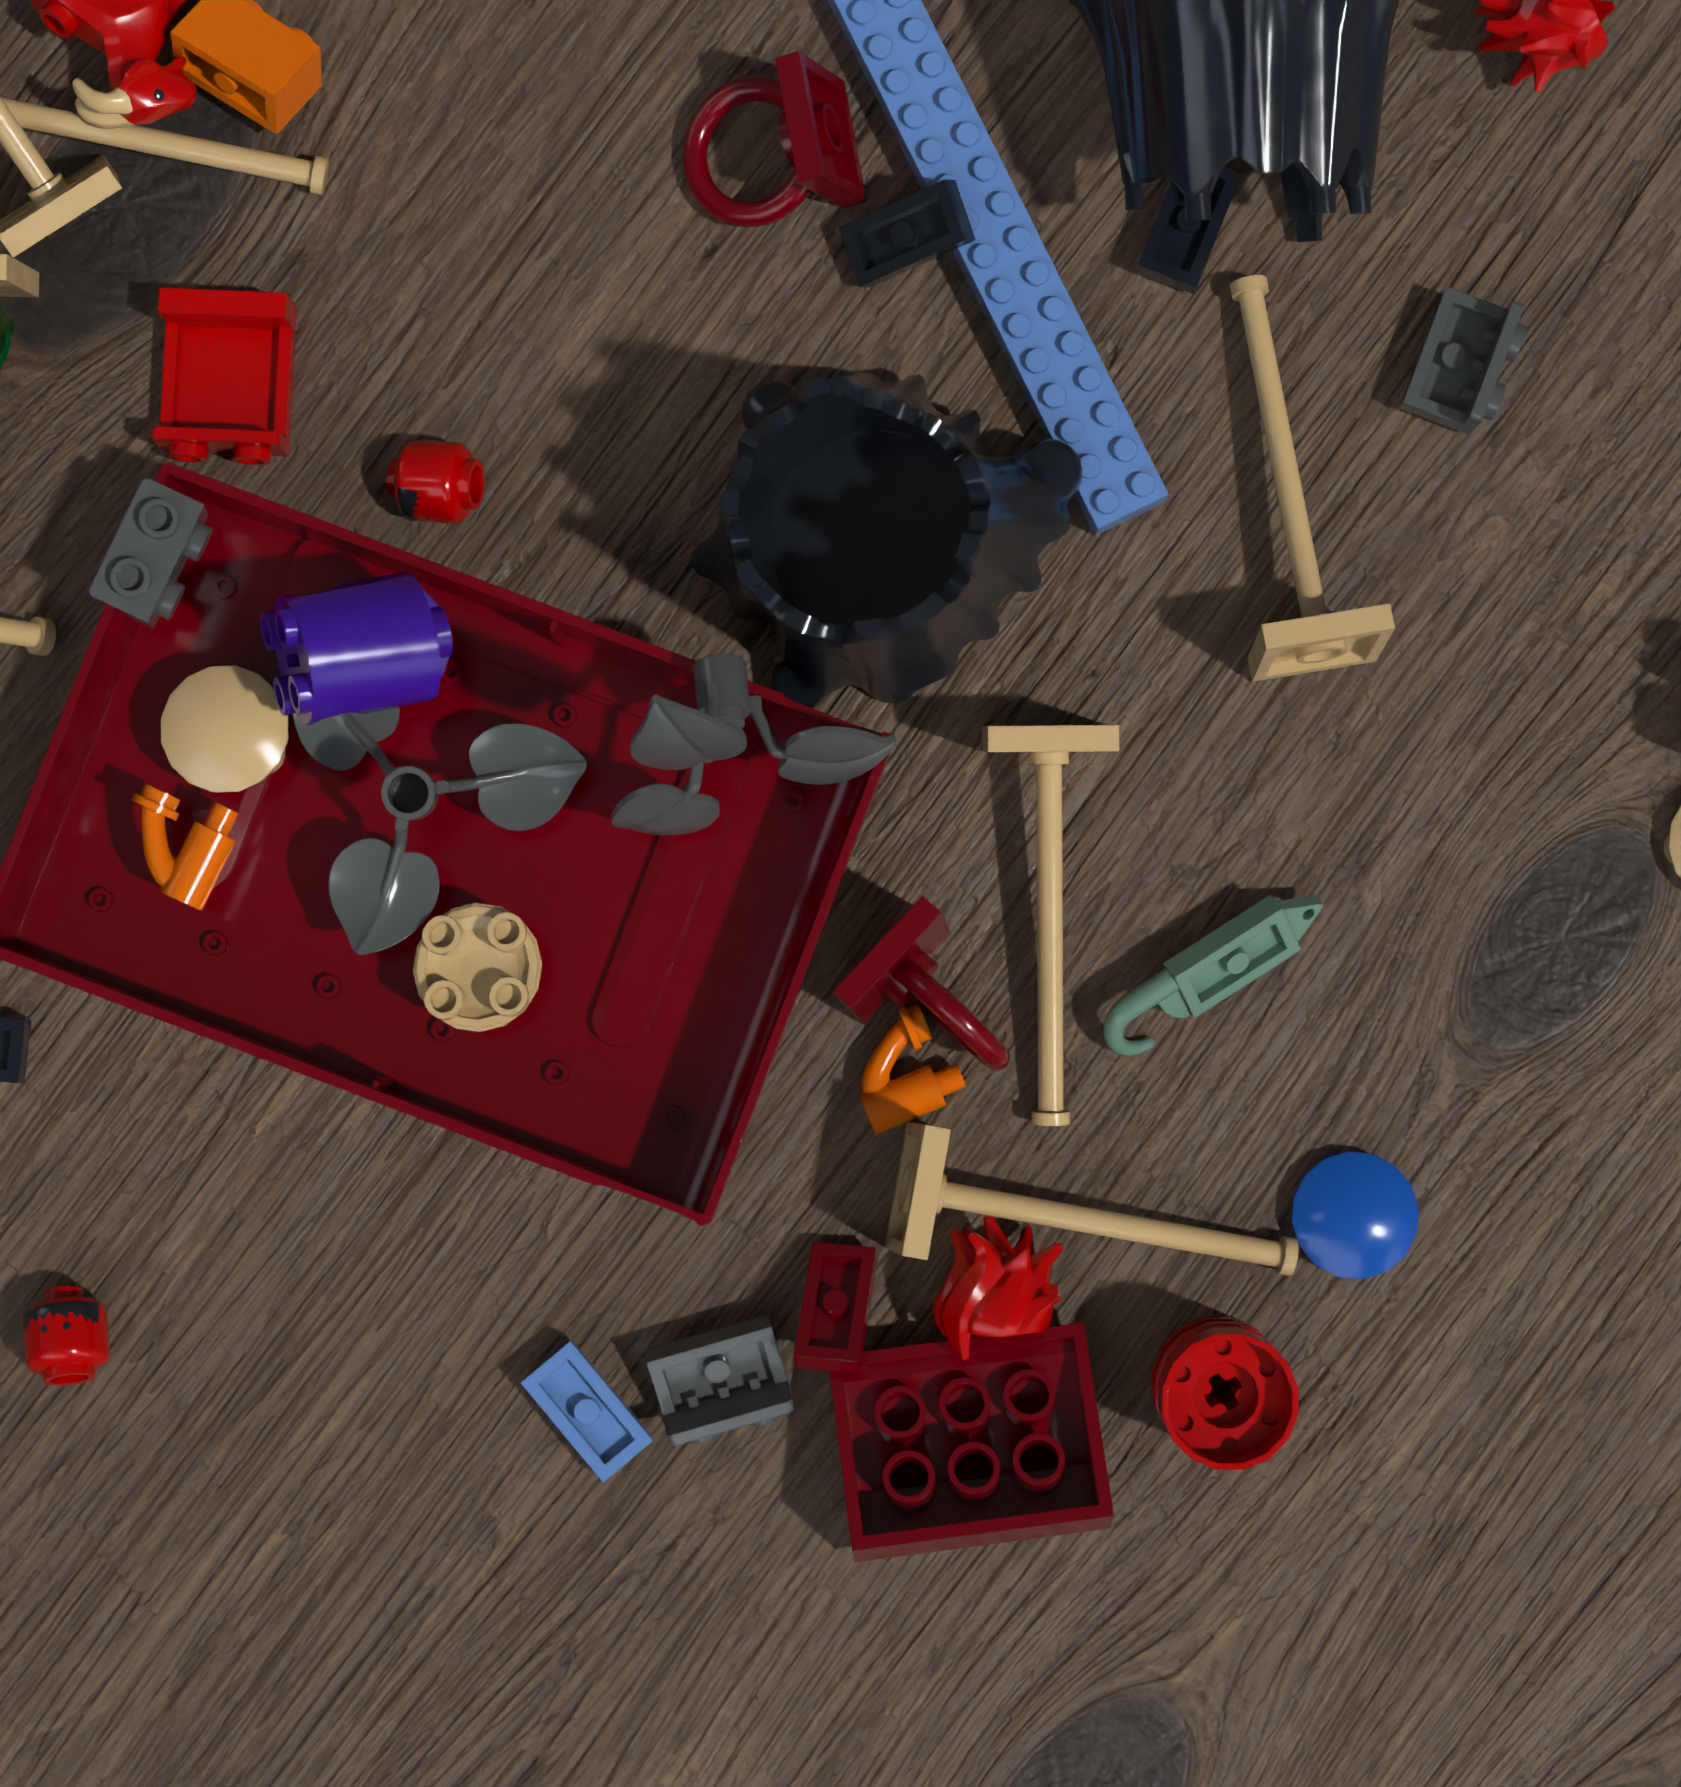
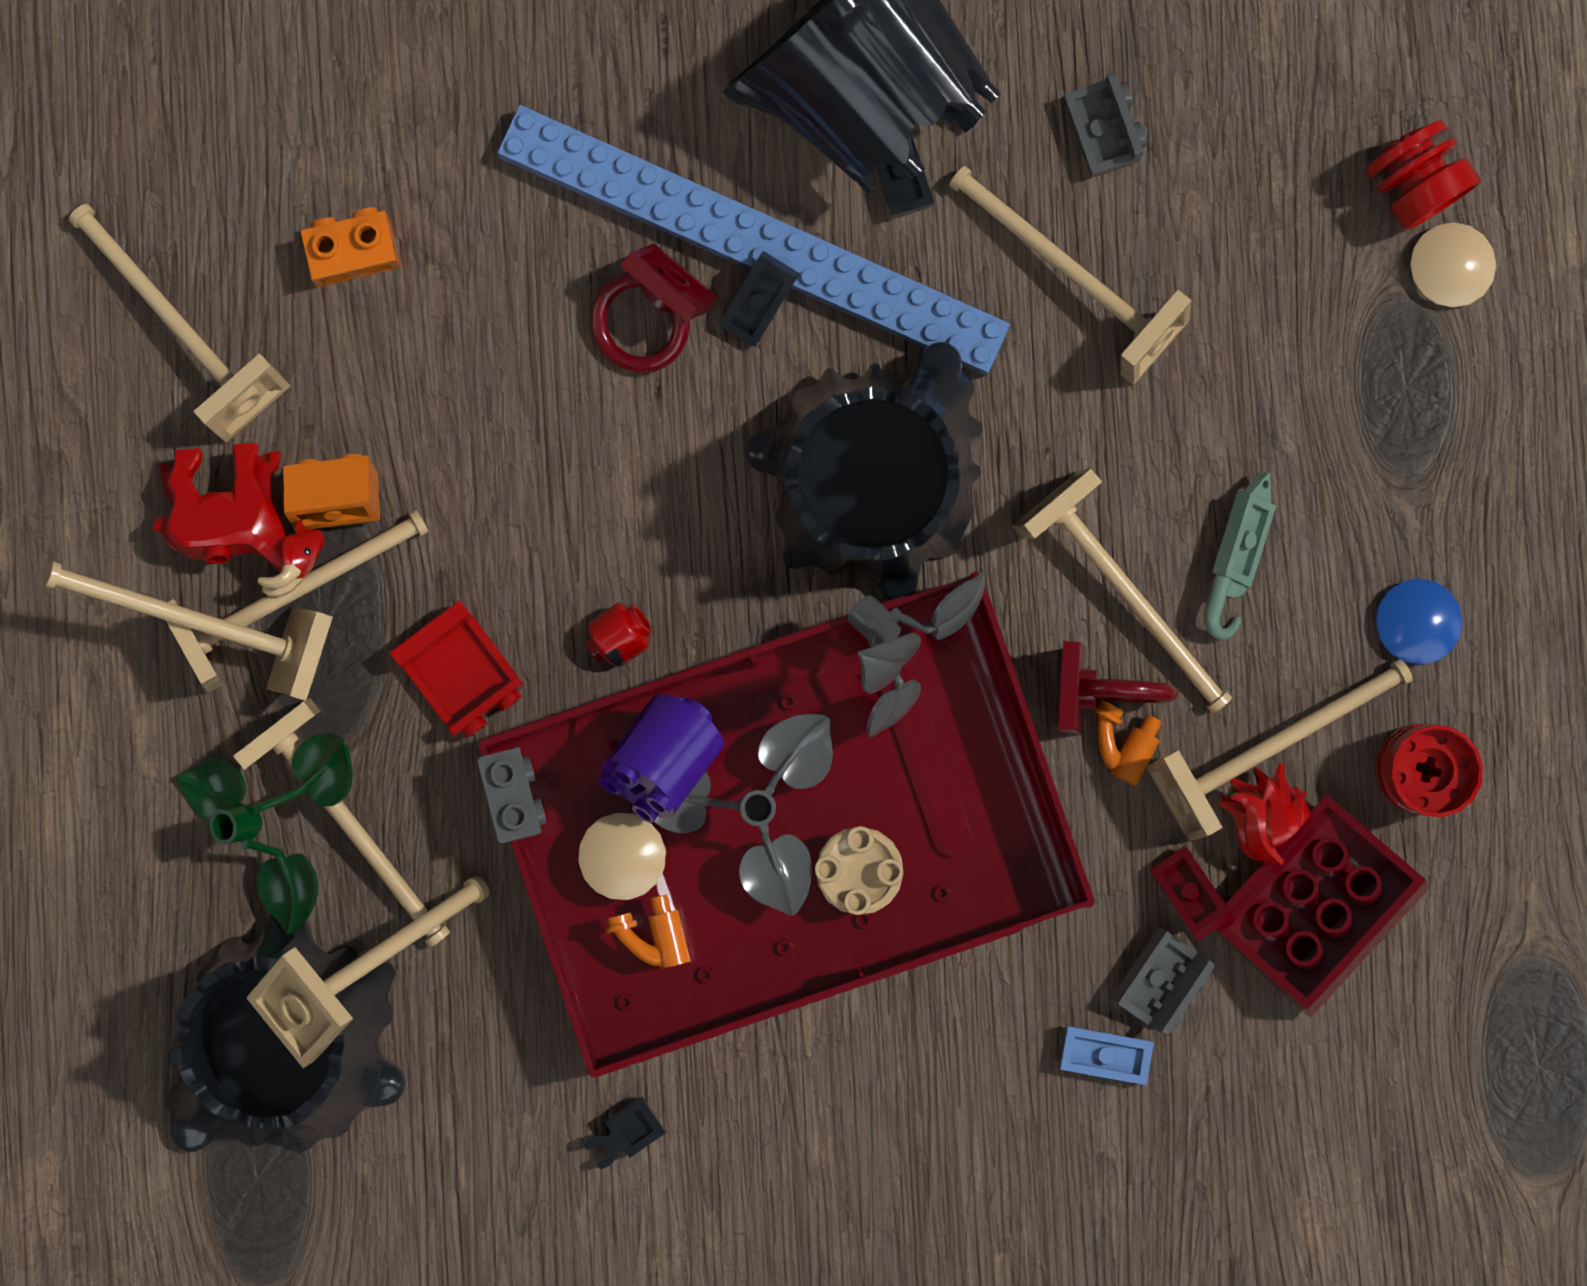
camera: 35 degrees left, 0 degrees up
(66, 1336) = (802, 1244): red head -> none

